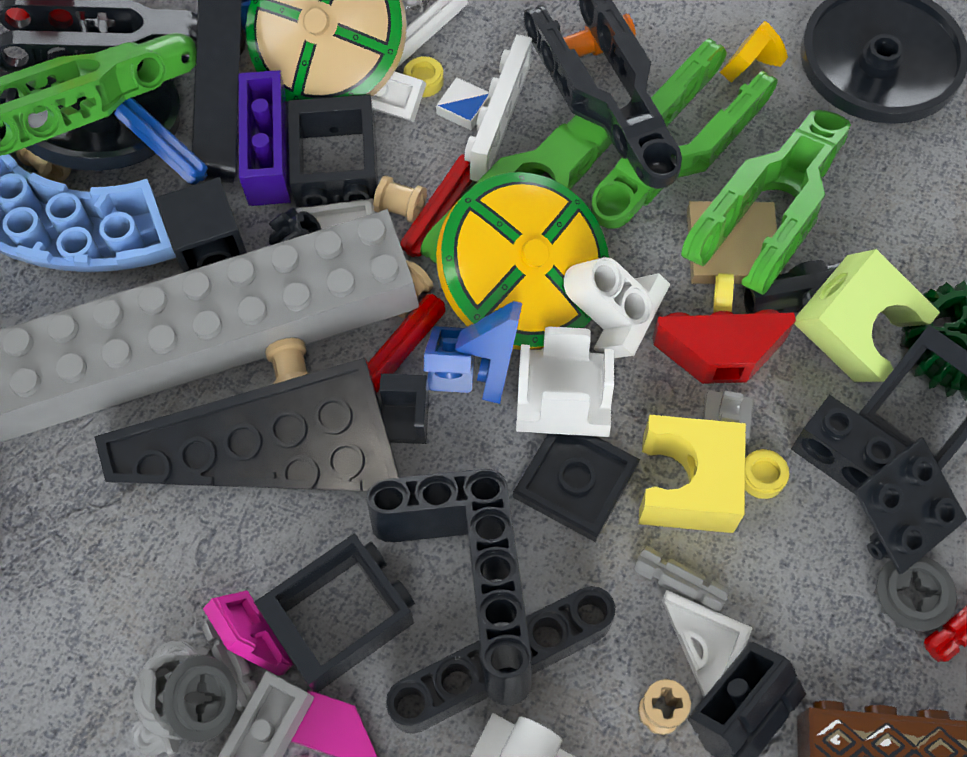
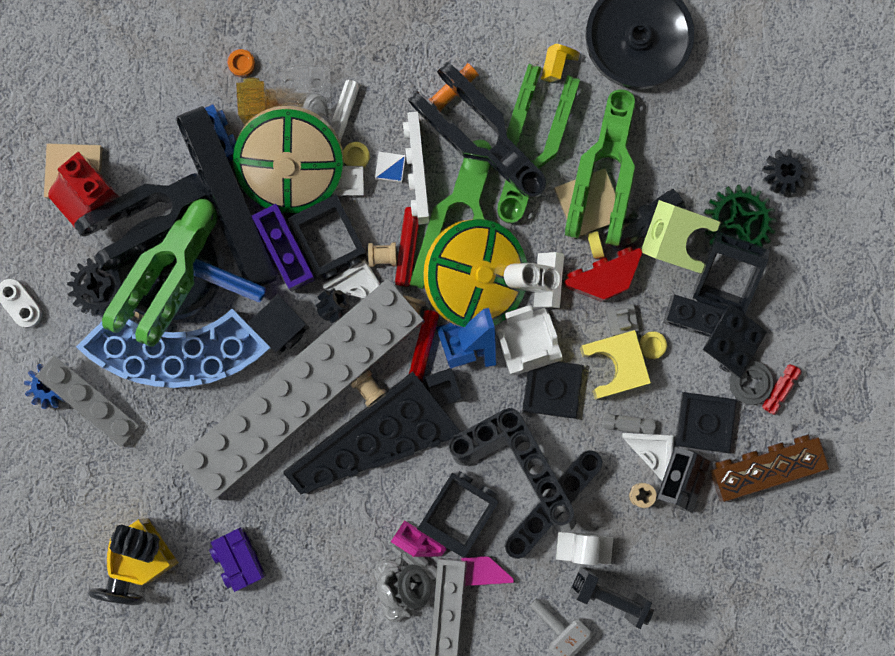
camera: 20 degrees left, 20 degrees up
(818, 629) = (705, 422): none -> black tile

